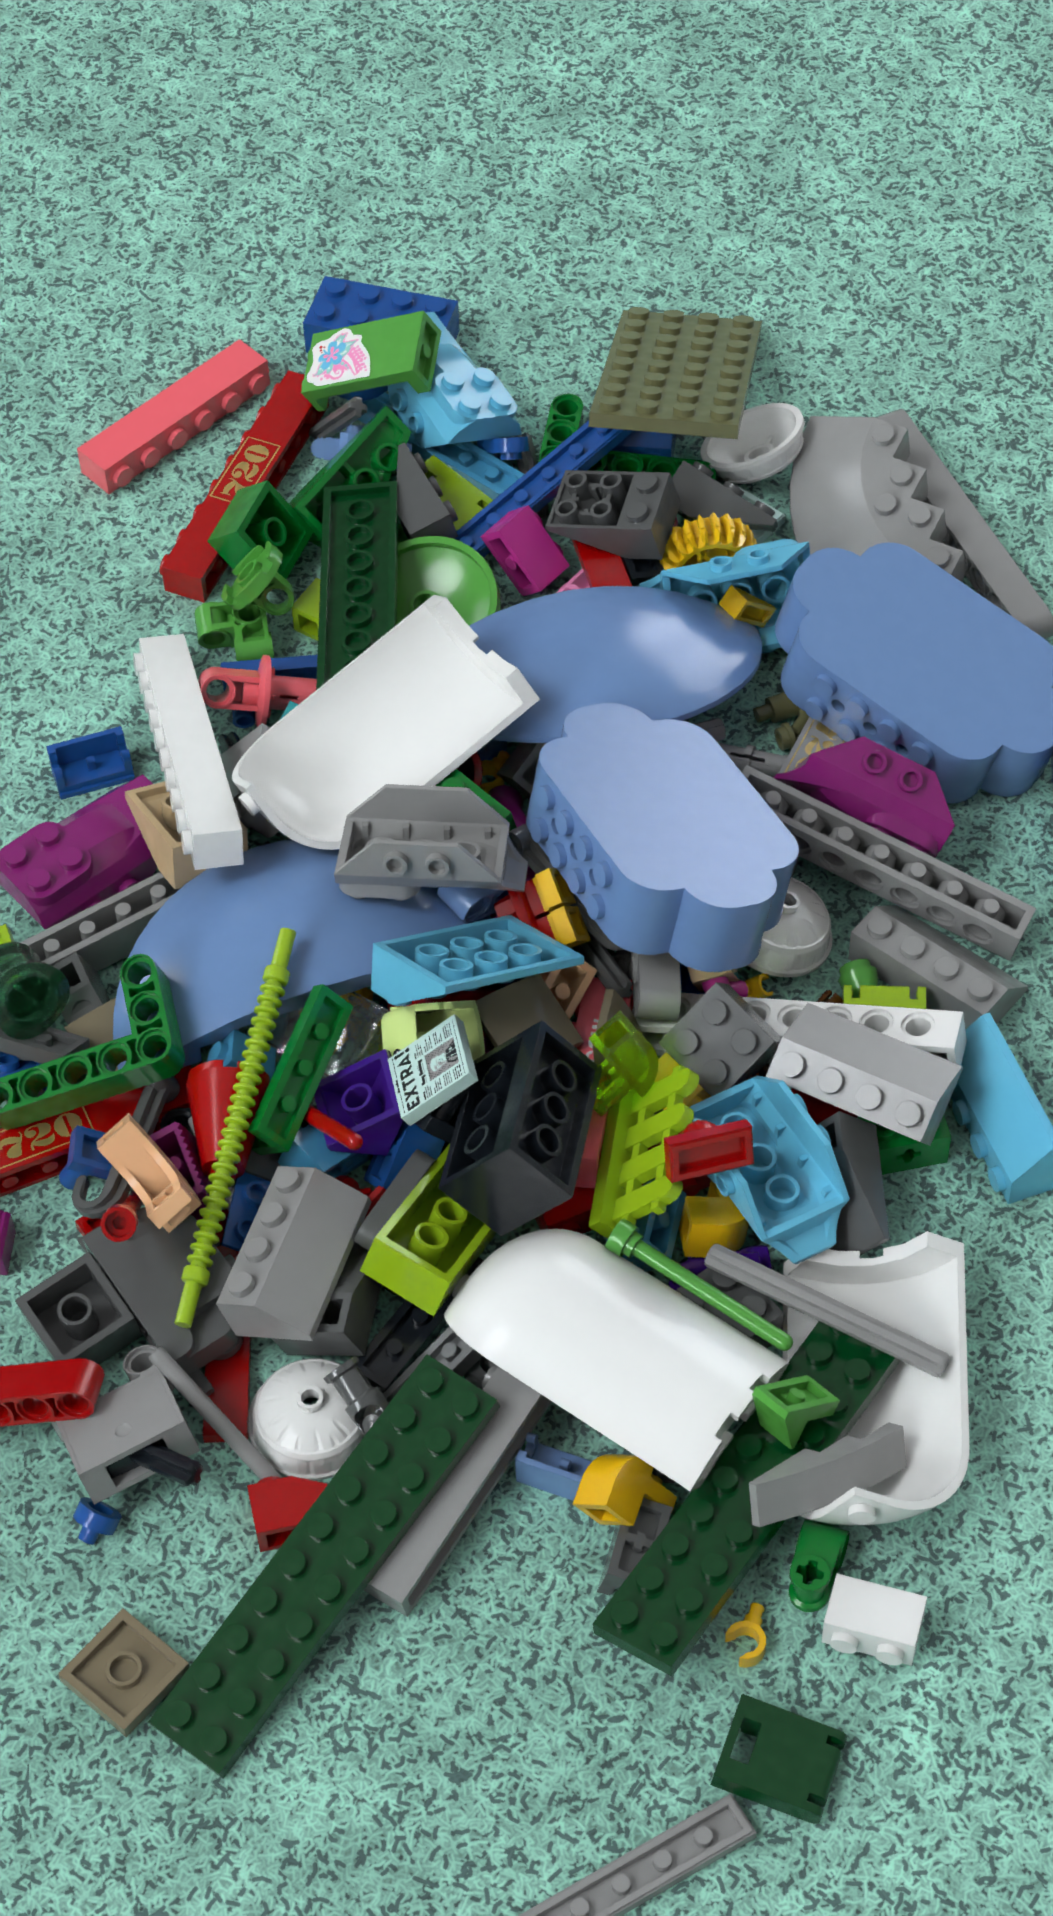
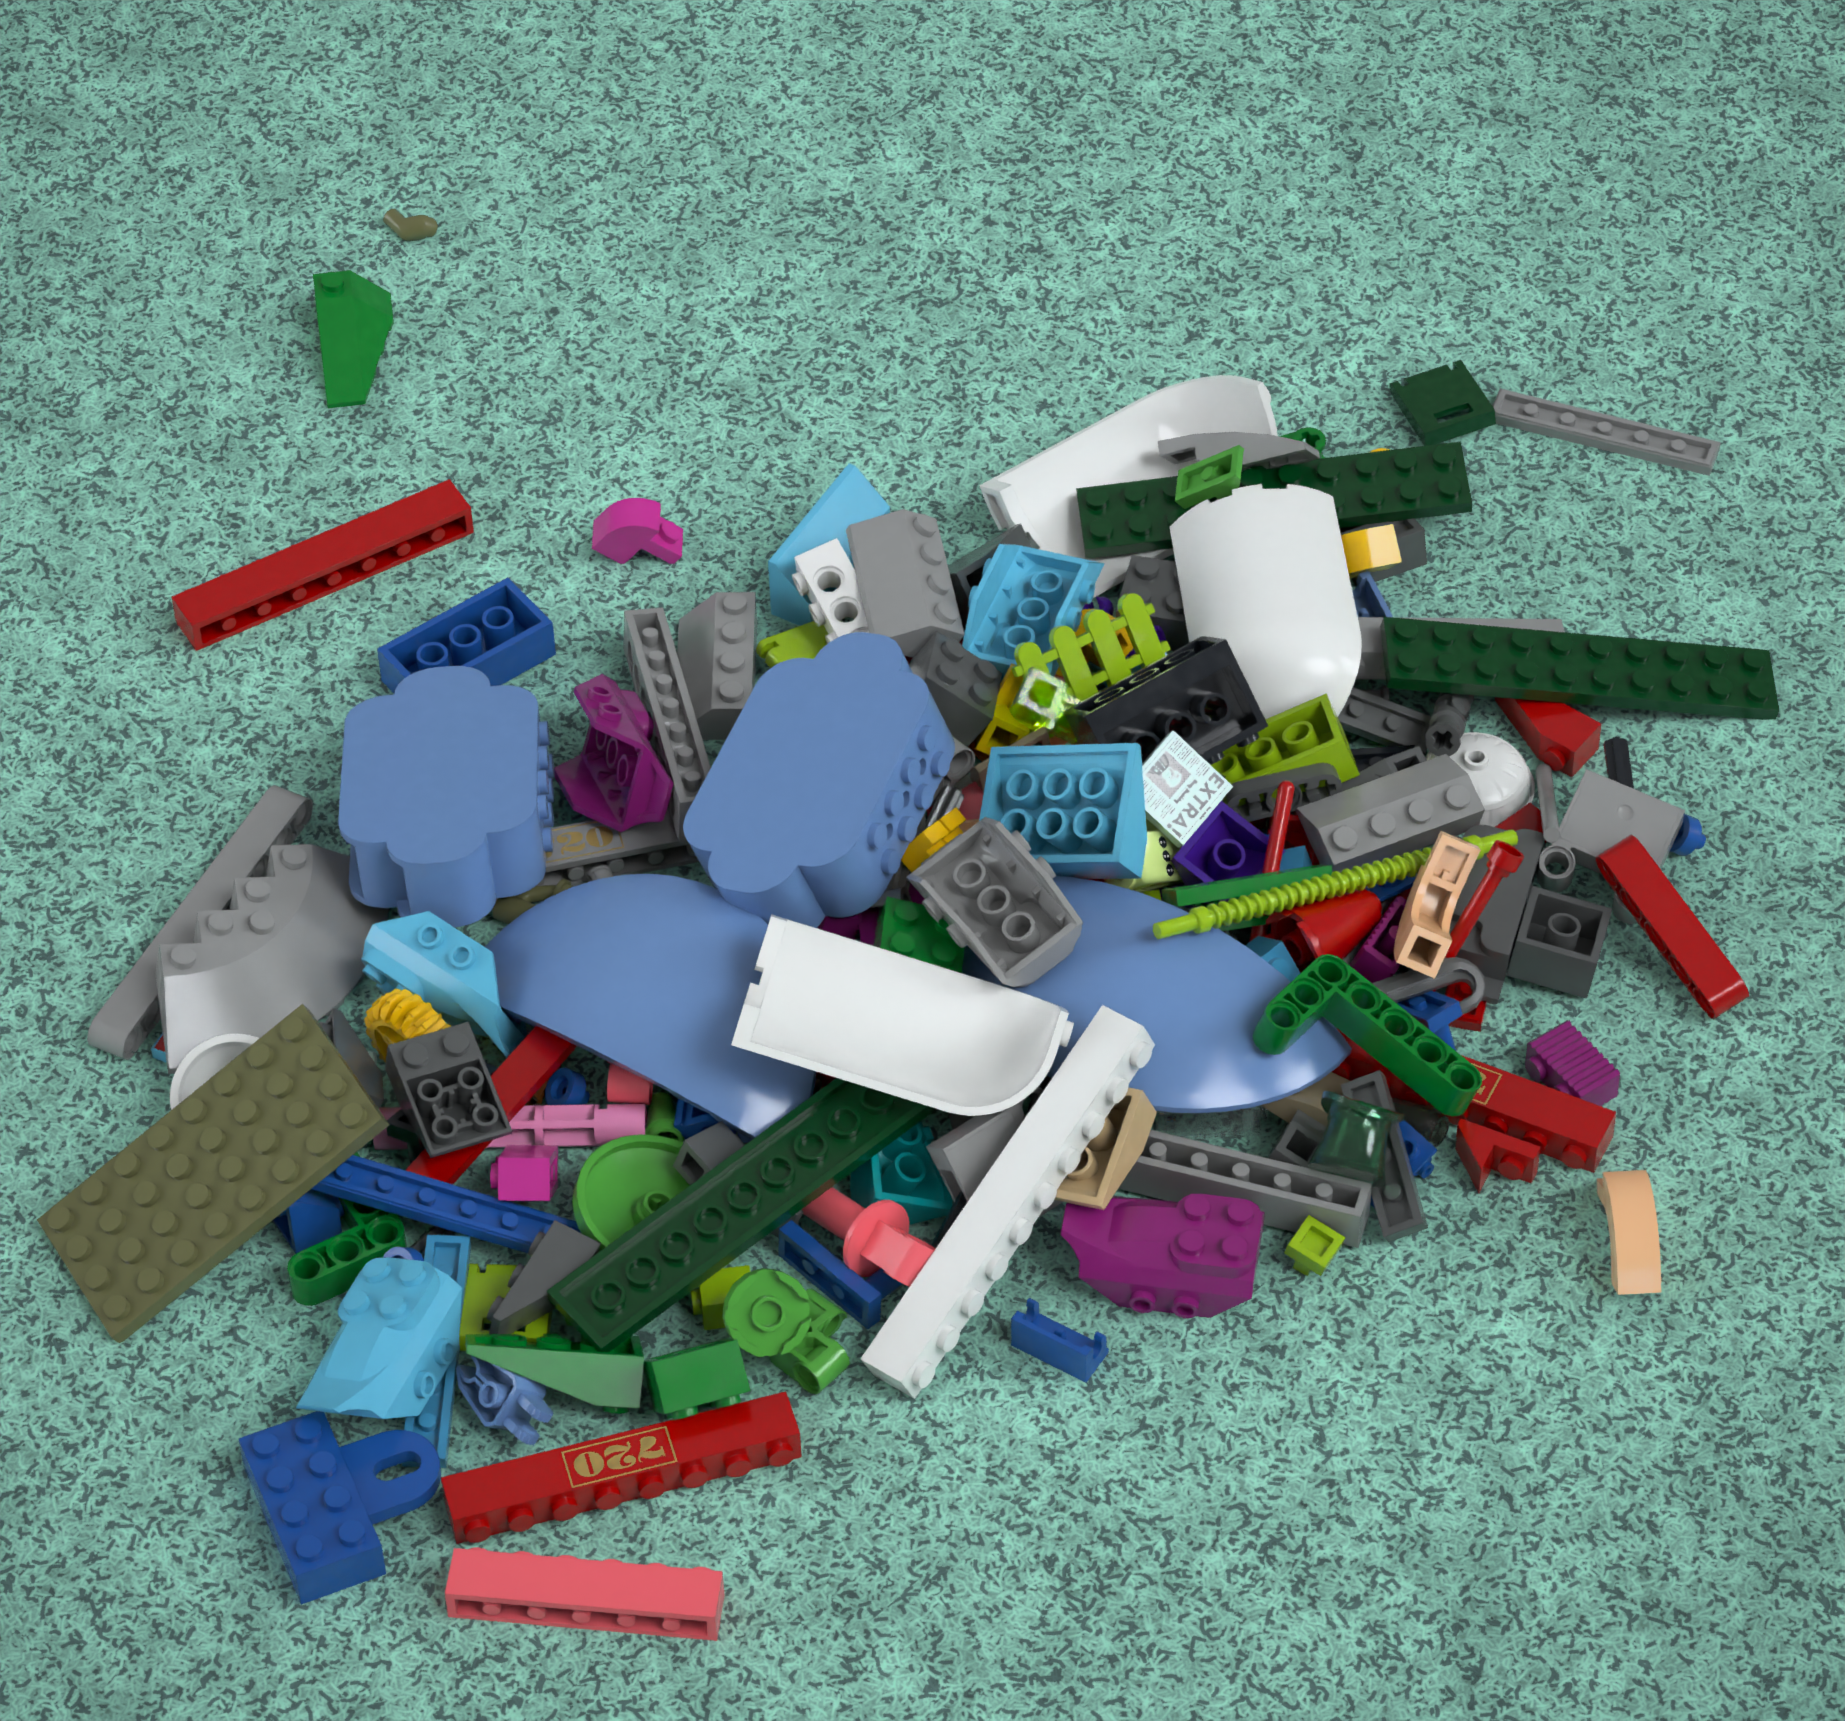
camera: 130 degrees left, 5 degrees down
(124, 1672) = (1763, 745): dark tan plate -> none
(339, 419) = (493, 1409): dark grey axle -> none
(371, 357) = (423, 1396): bright green panel -> none
(628, 1242) = (1178, 633): bright green piece -> none
(708, 1149) = (1088, 580): red tile -> none
(827, 1310) = (1112, 518): light grey axle -> none
(873, 1620) = (1302, 399): white brick -> none

